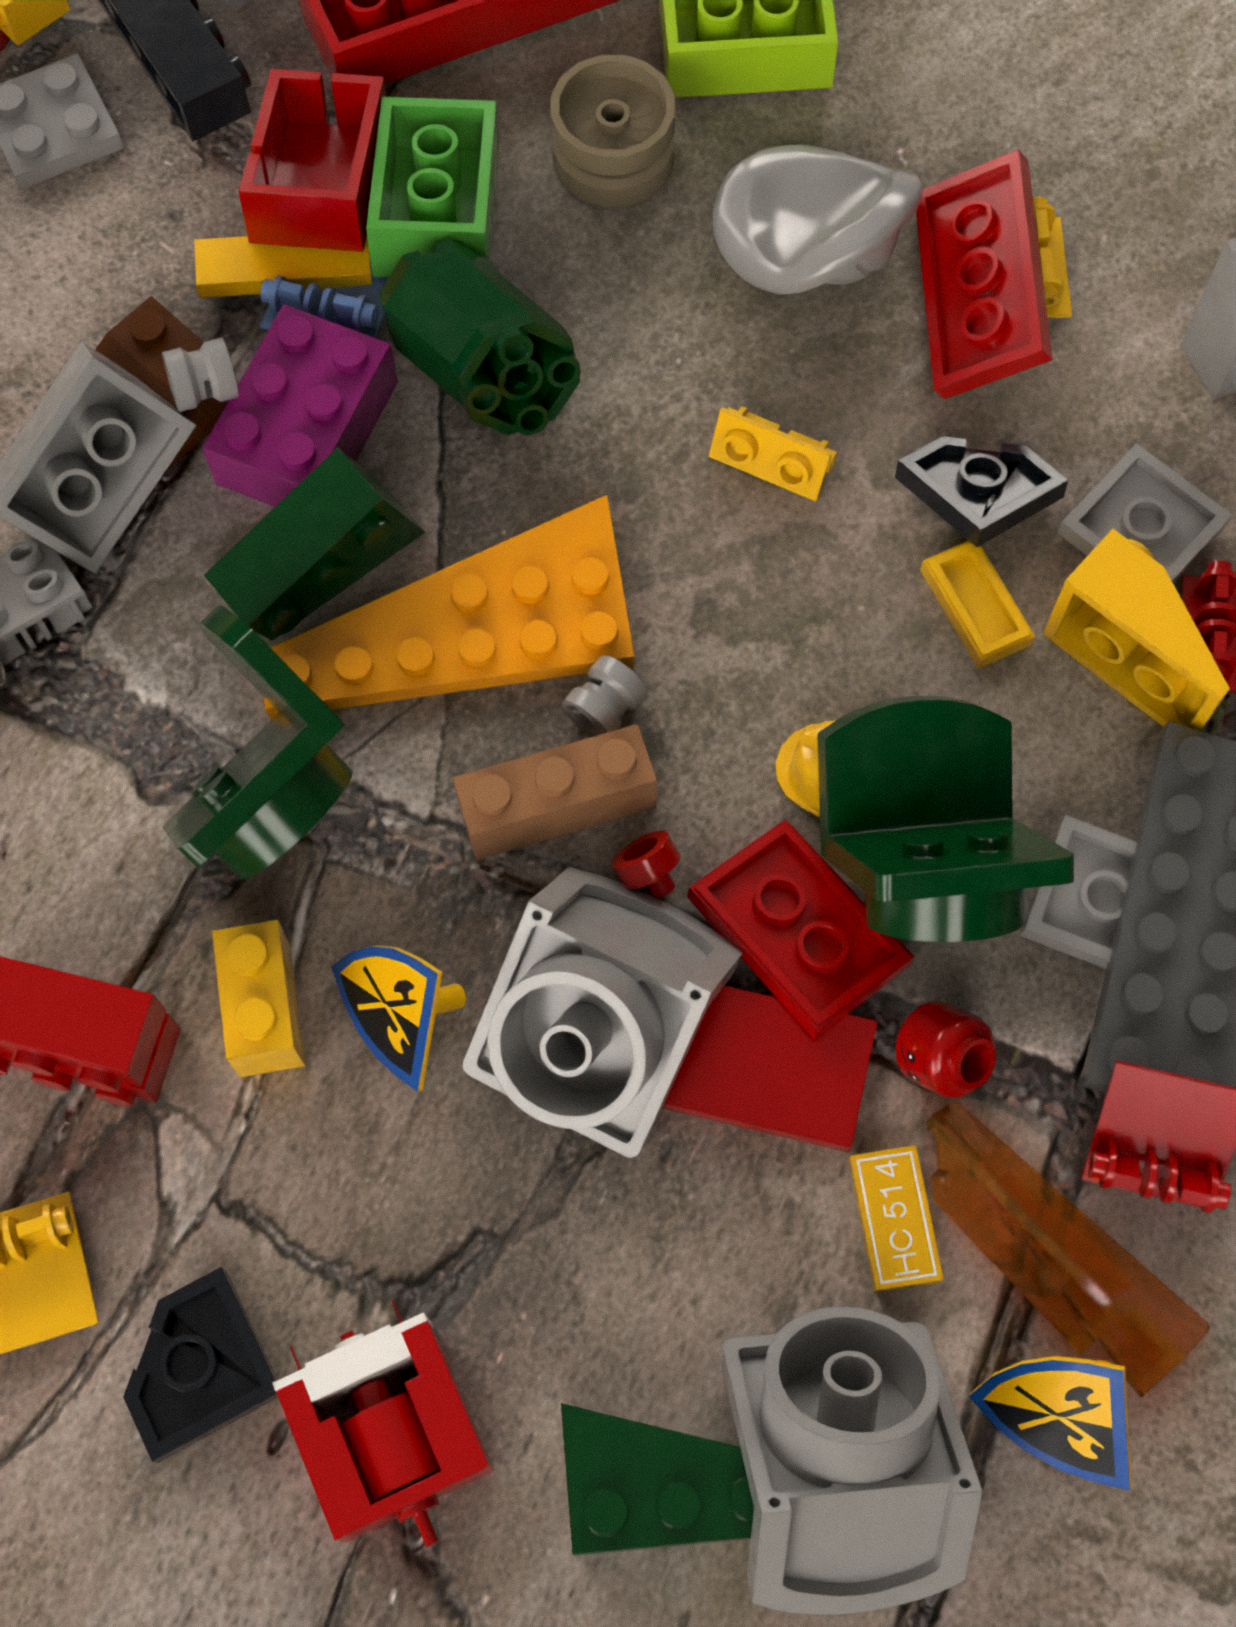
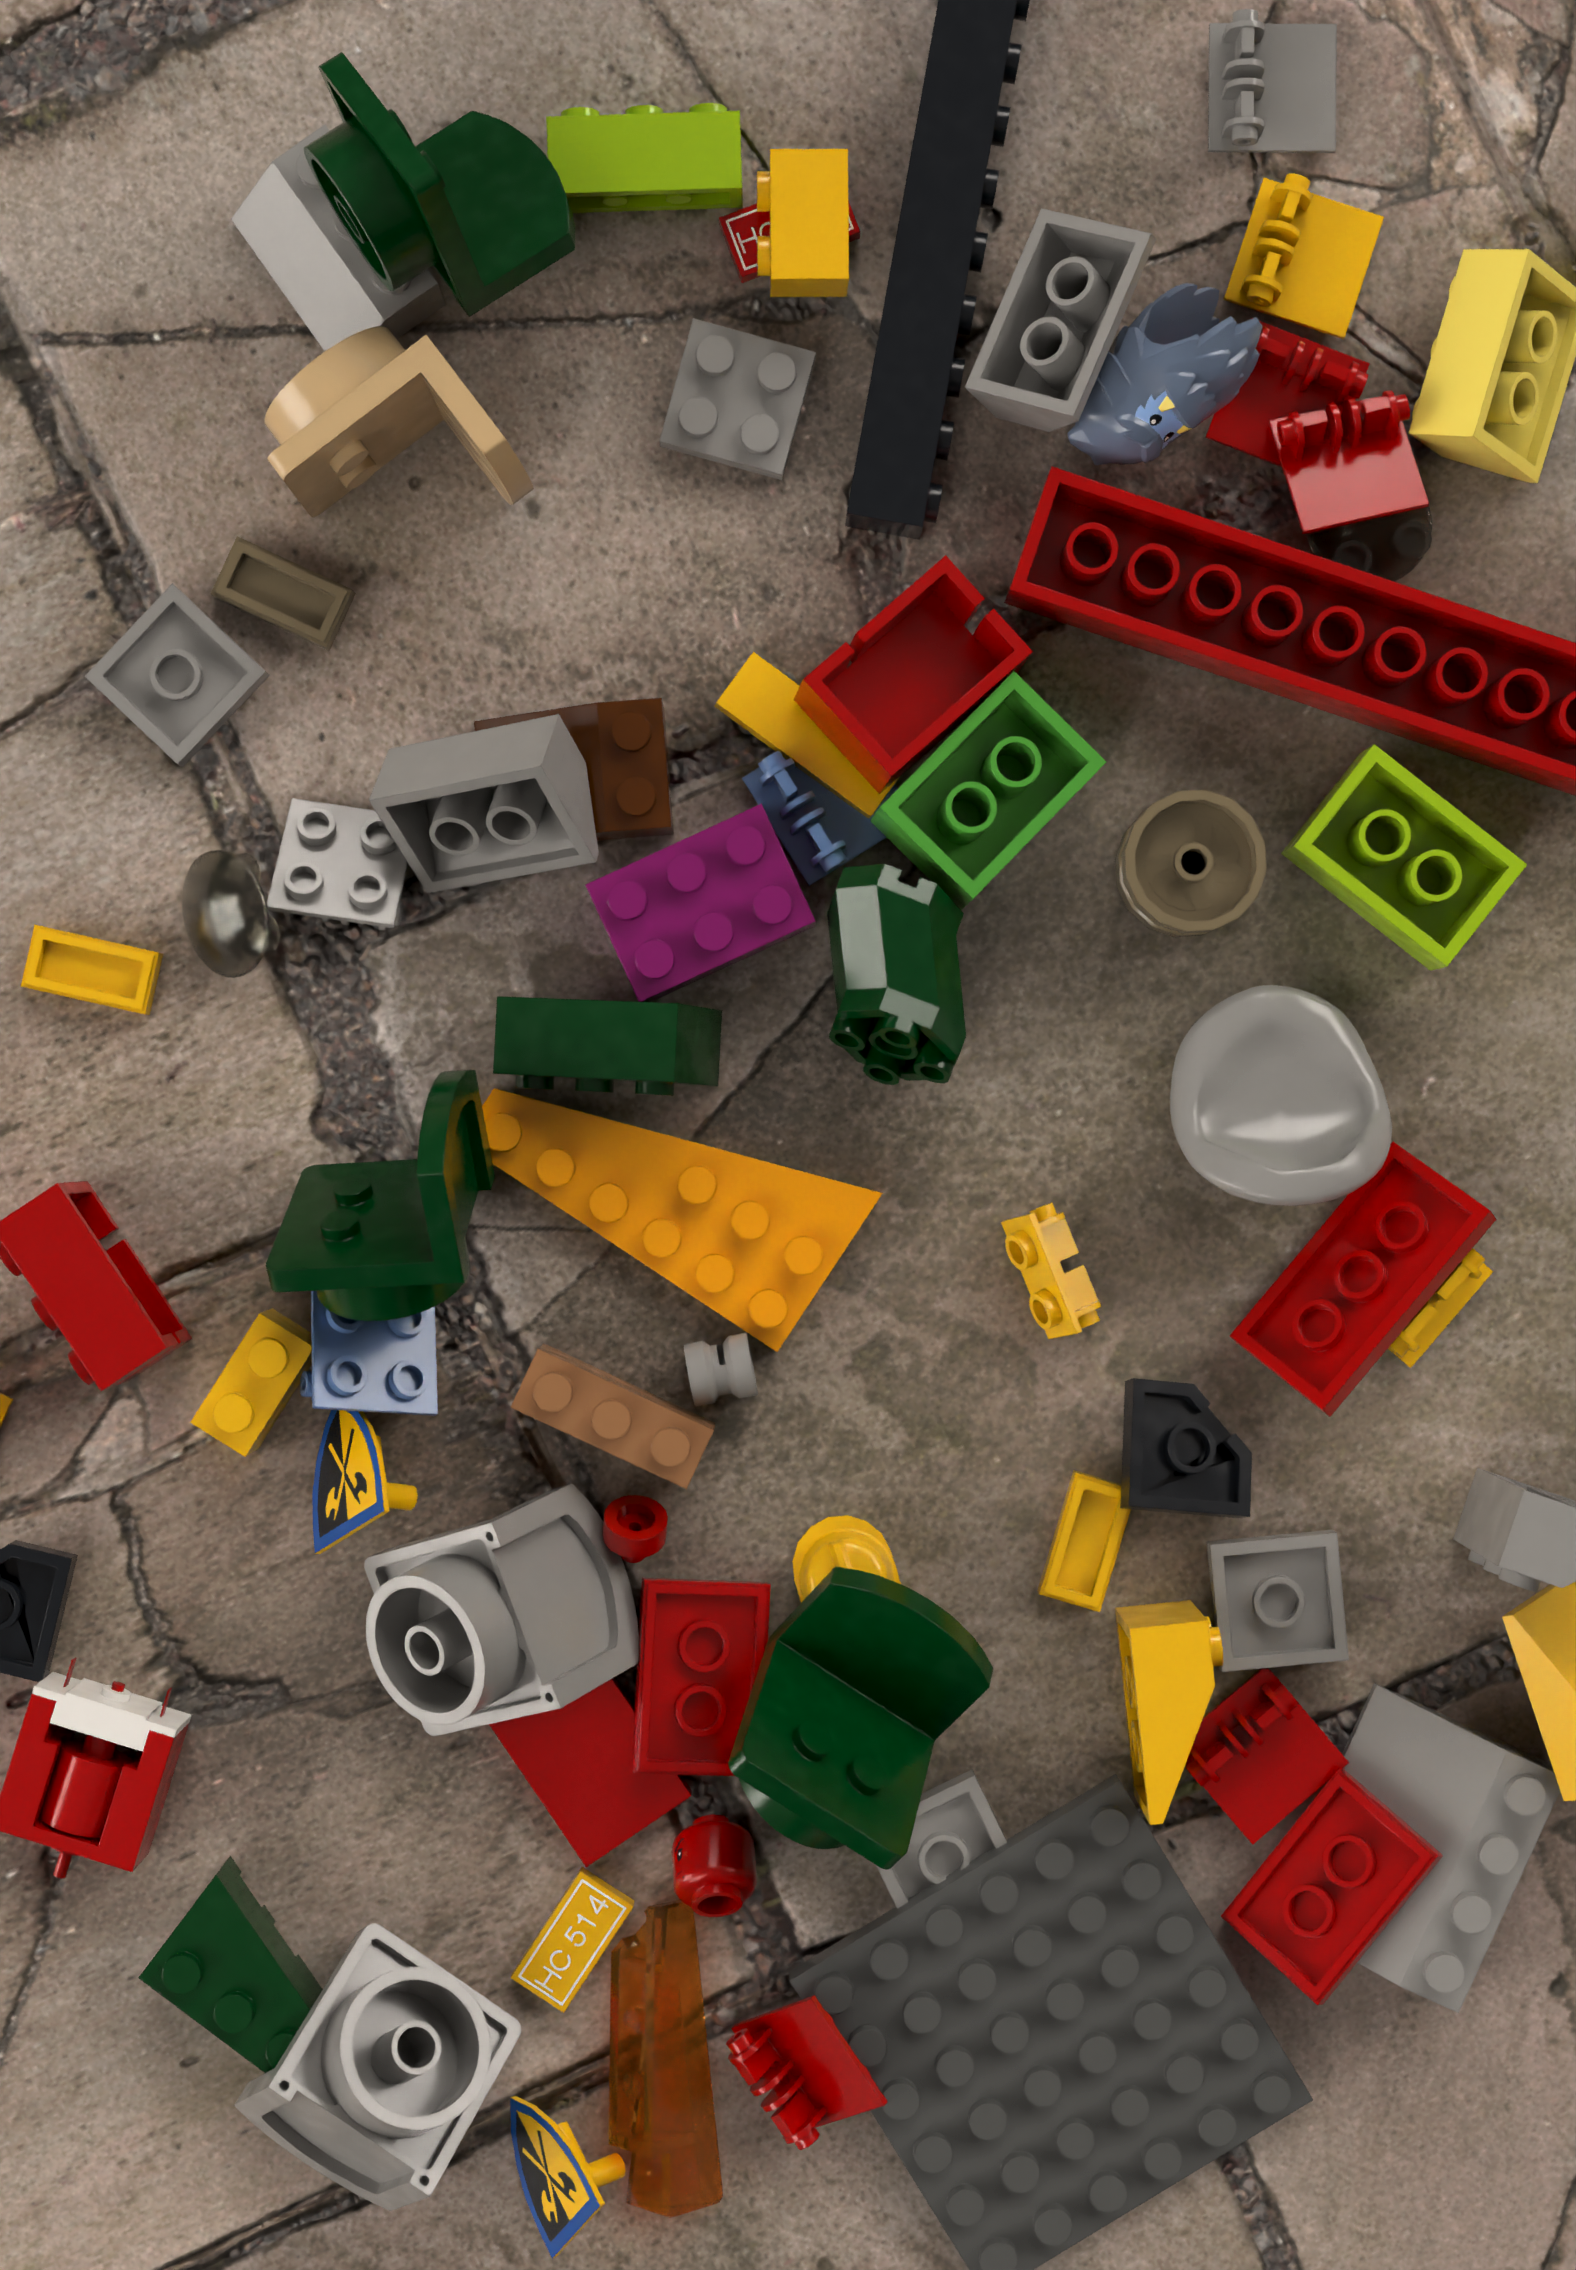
camera: 45 degrees right, 20 degrees up
(200, 374) = (626, 832): light grey wheel -> none
(329, 900) = (372, 1363): none -> medium blue hinge

